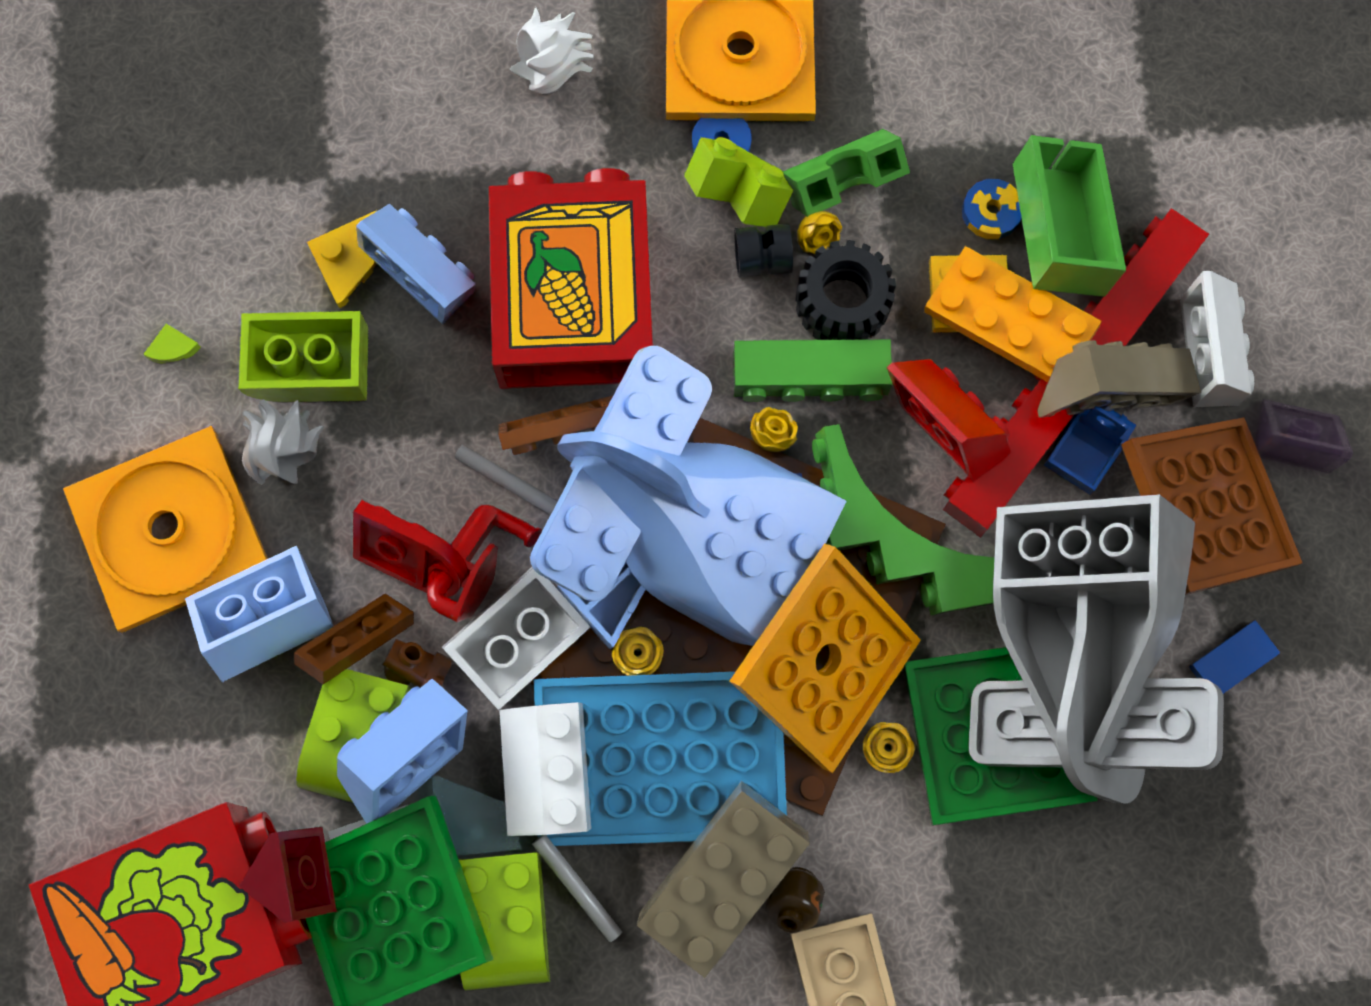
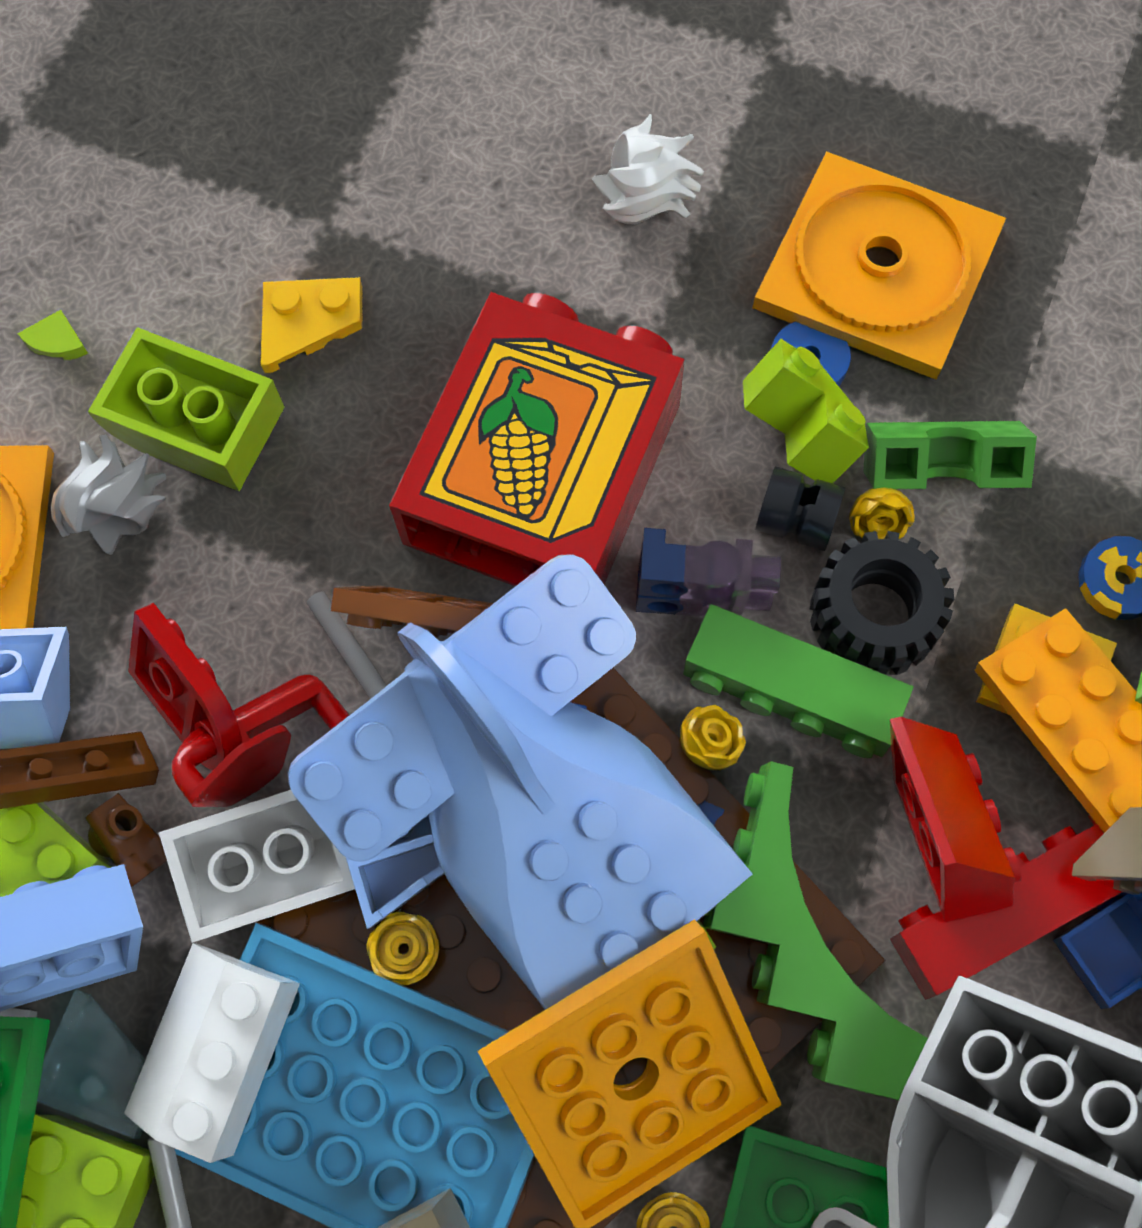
camera: 30 degrees right, 5 degrees down
(415, 261) = (370, 349): light blue slope -> none
(715, 328) = (691, 578): none -> clear purple hips

